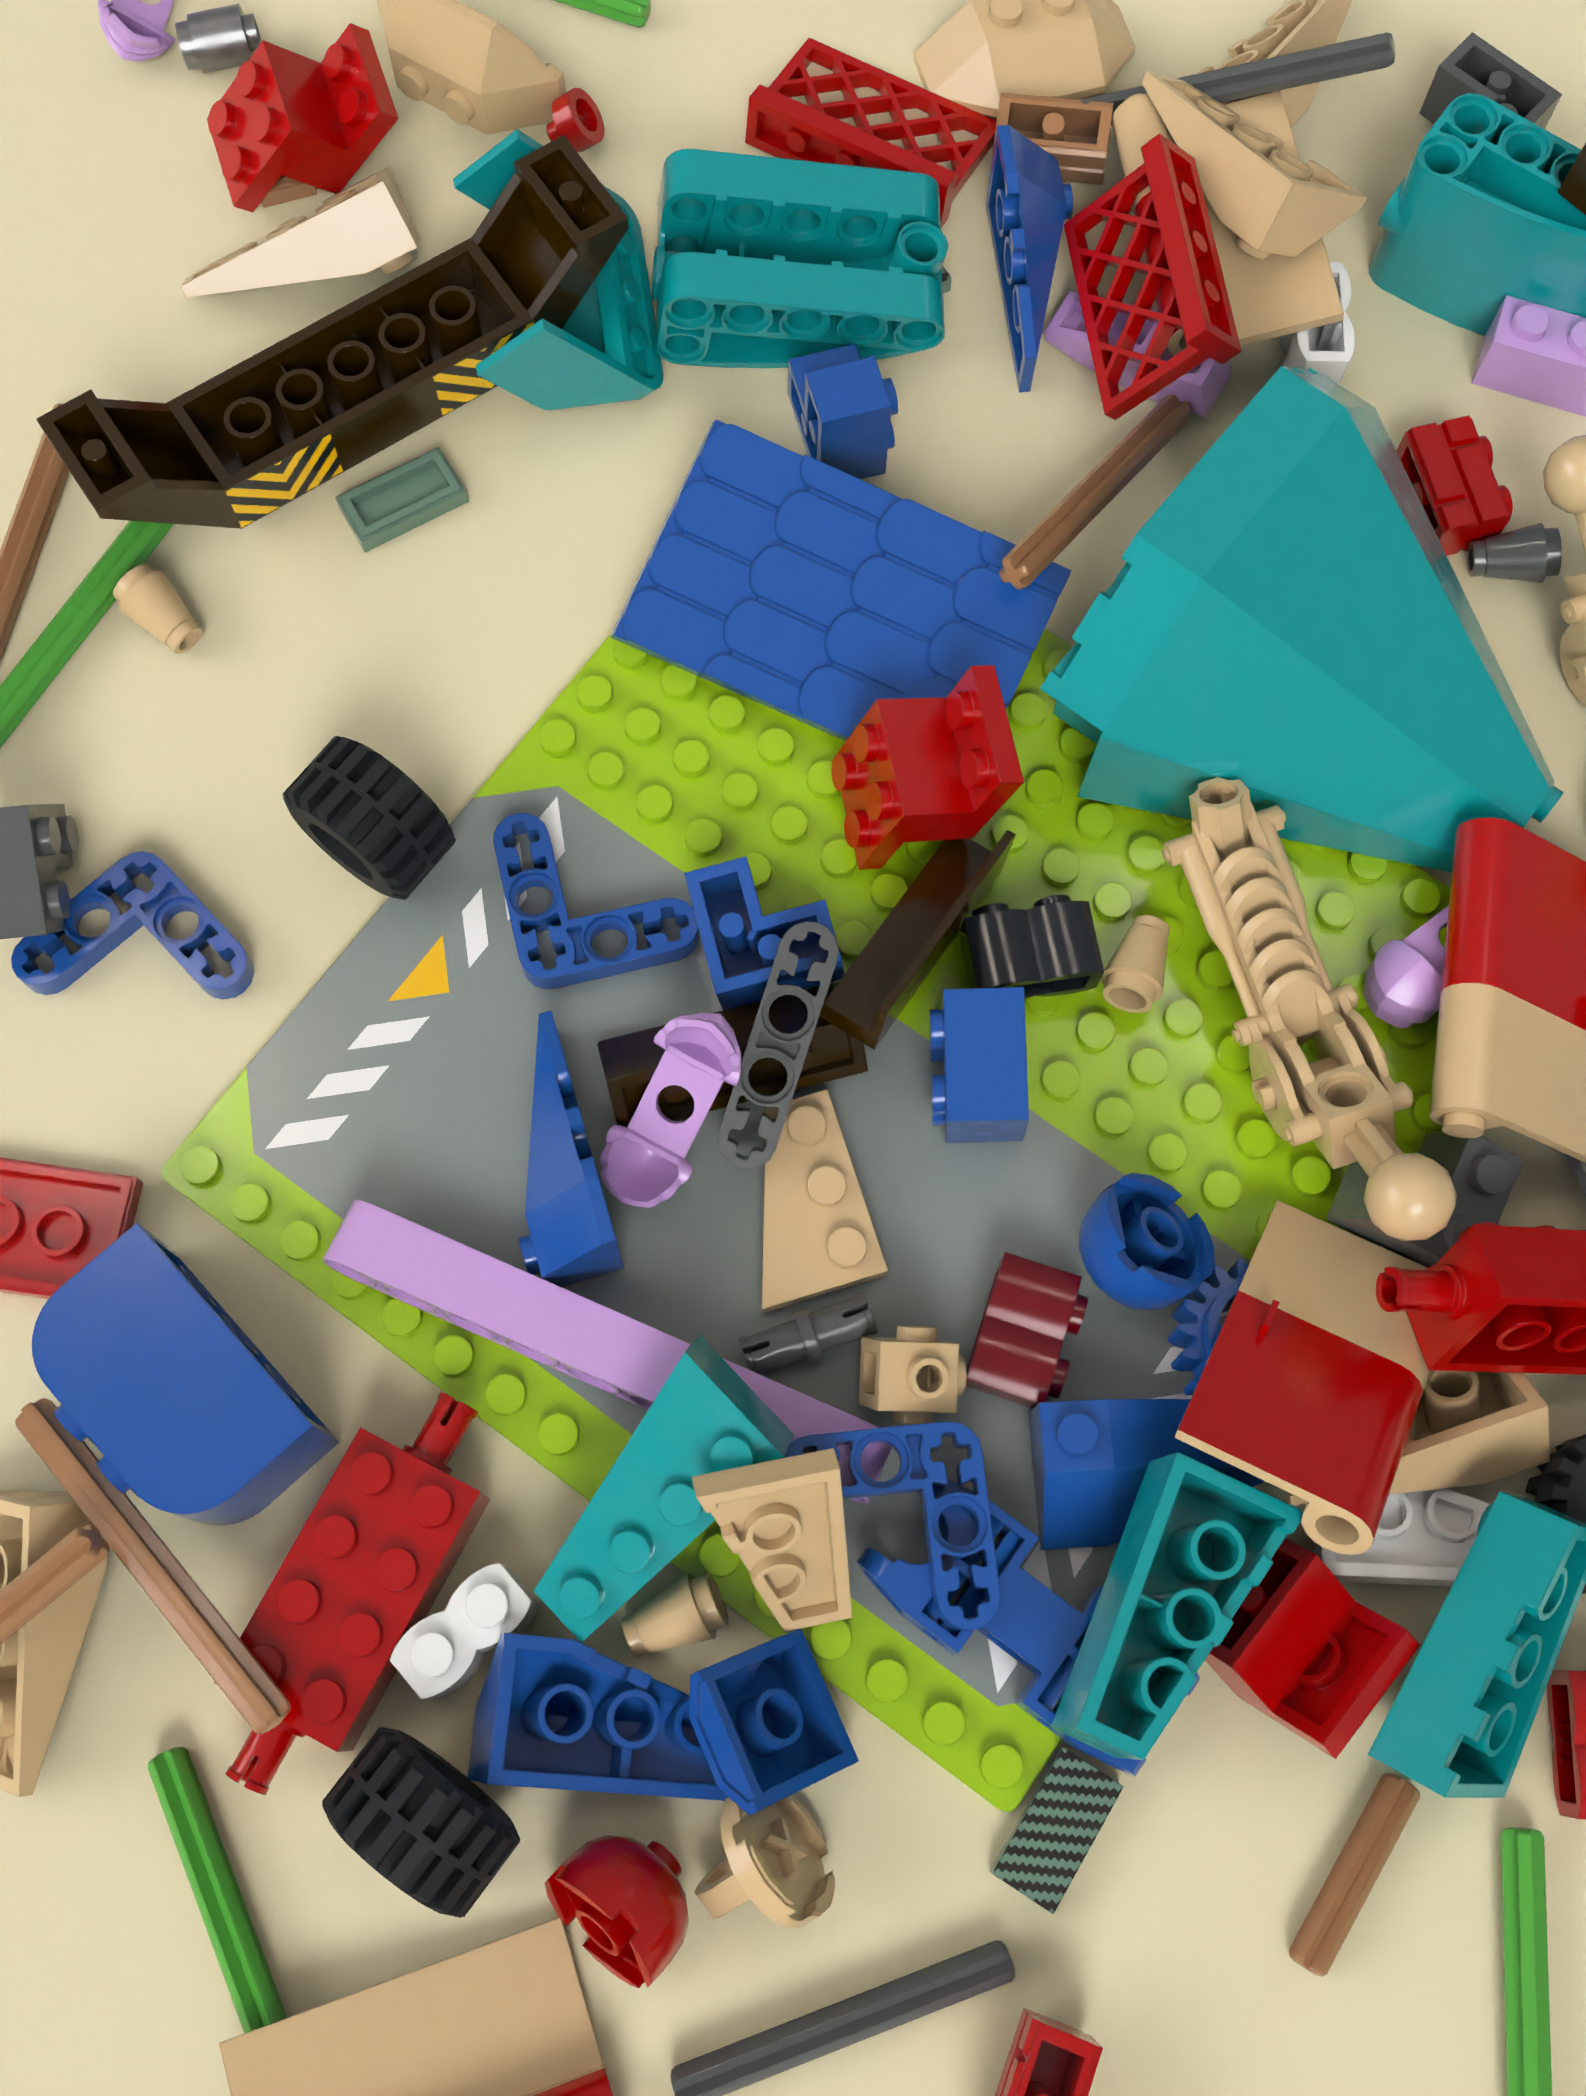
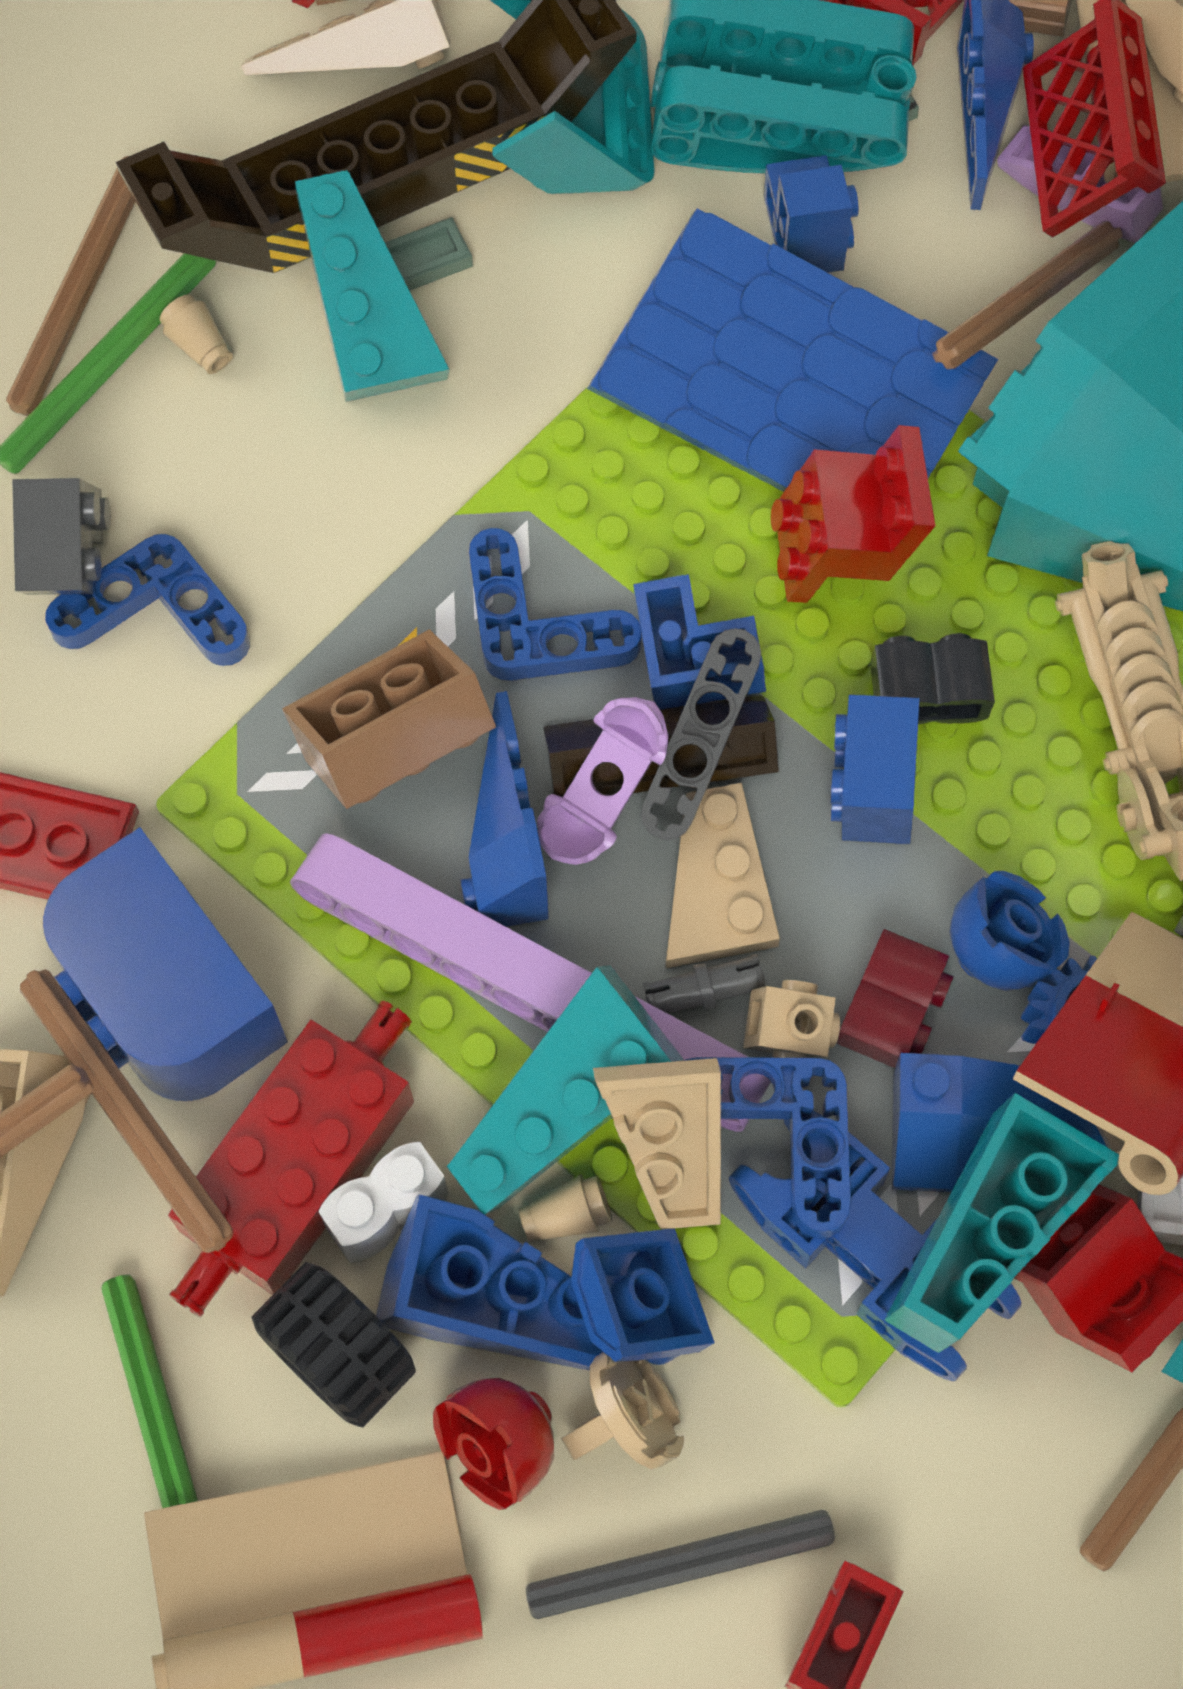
camera: 10 degrees right, 5 degrees down
(349, 564) = (368, 309): none -> teal wedge
(369, 817) = (365, 518): black tyre -> none
(418, 1056) = (389, 718): none -> medium nougat brick
(913, 938) = (830, 658): dark brown panel -> none
(1056, 1829) = (883, 1424): tile -> none
(1138, 966) = (1026, 702): tan cone -> none

